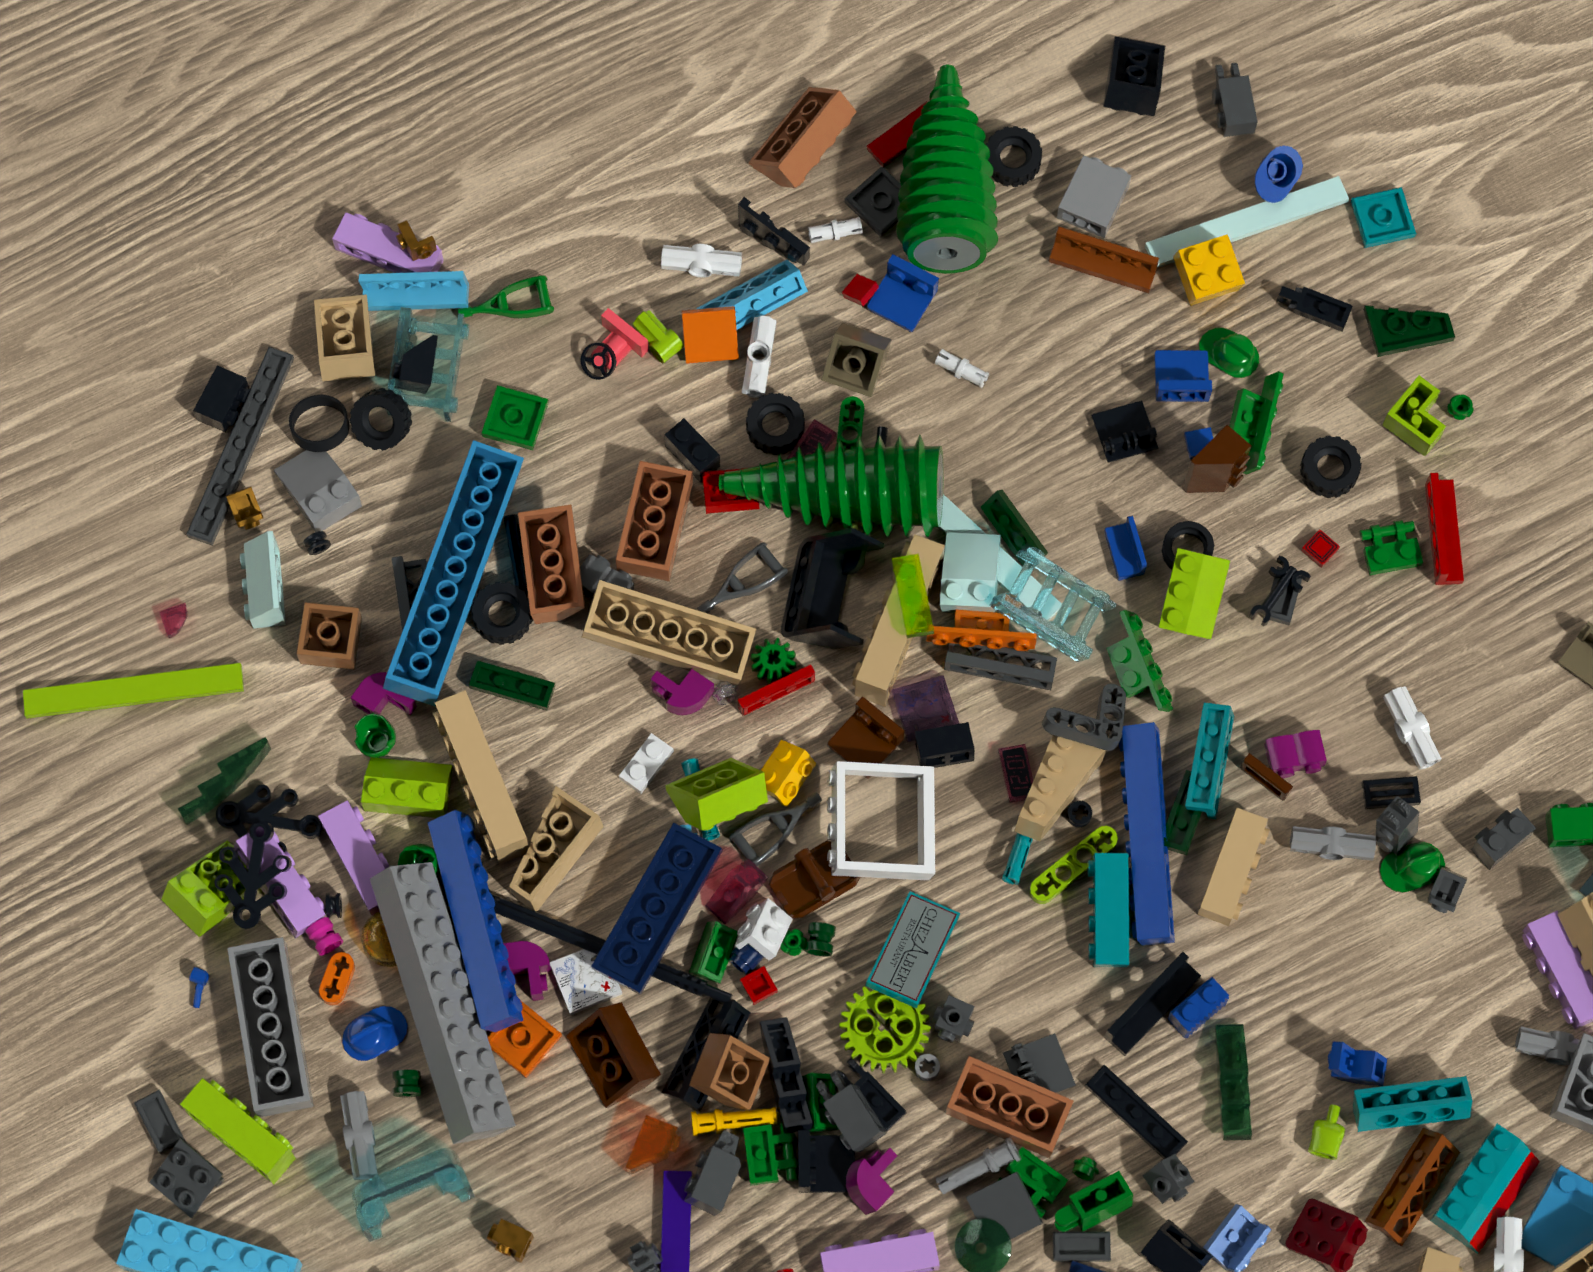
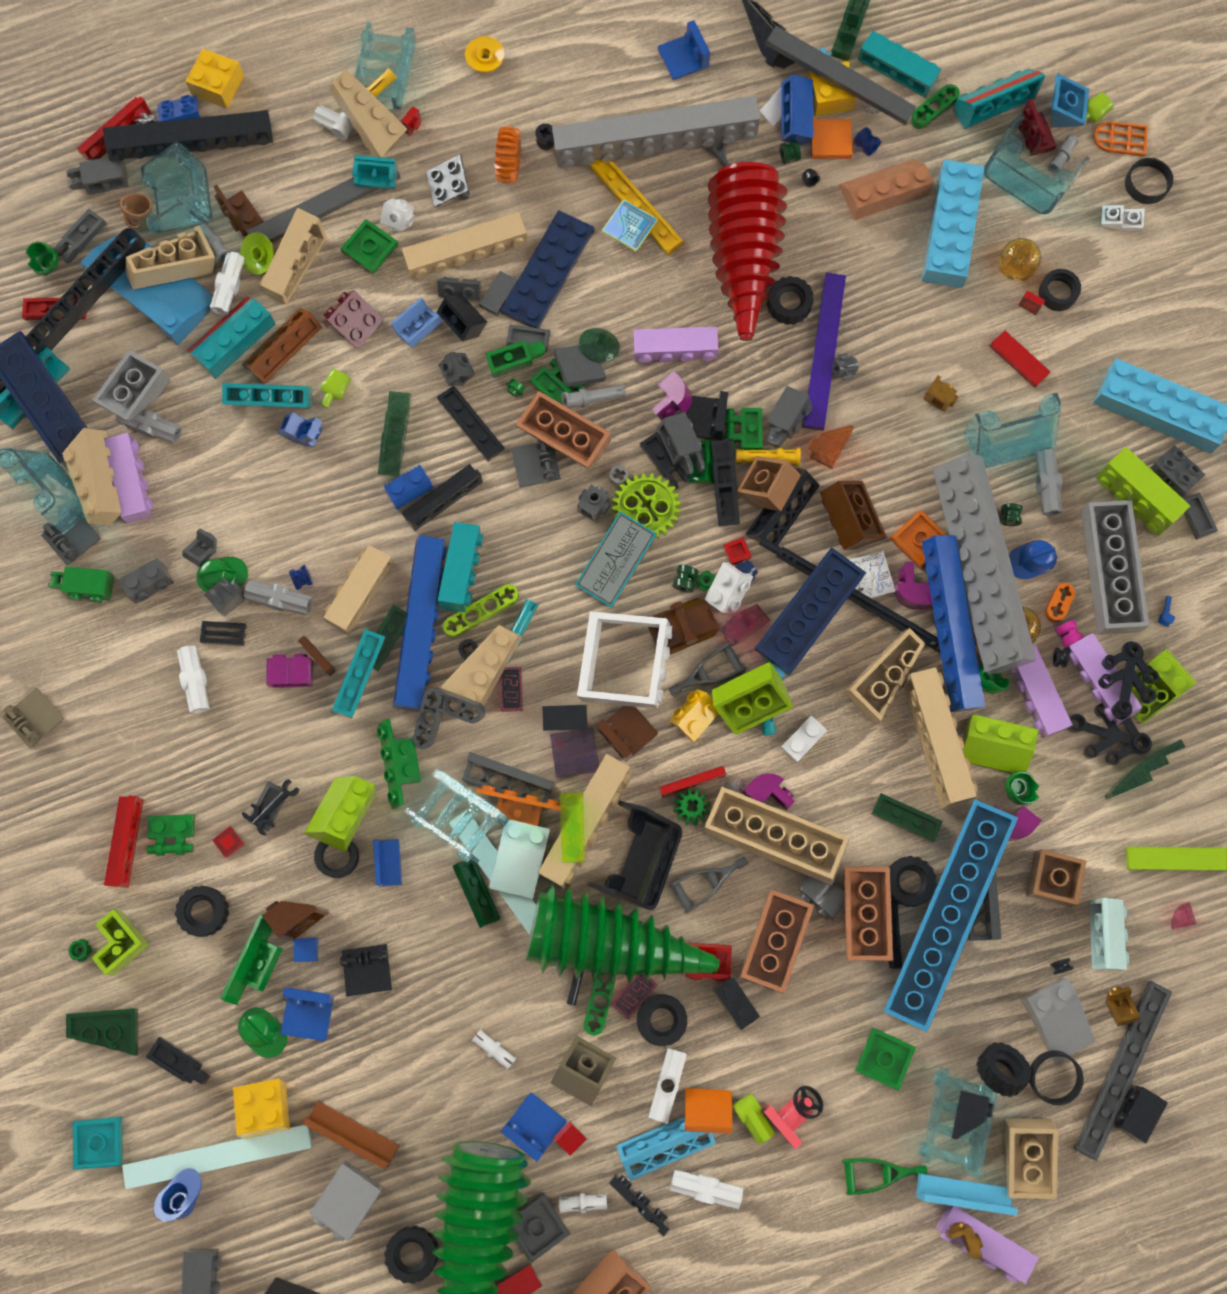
camera: 170 degrees left, 5 degrees up
(713, 951) = (768, 583): green slope -> none
(1309, 872) = (301, 577): none -> clear blue wheel

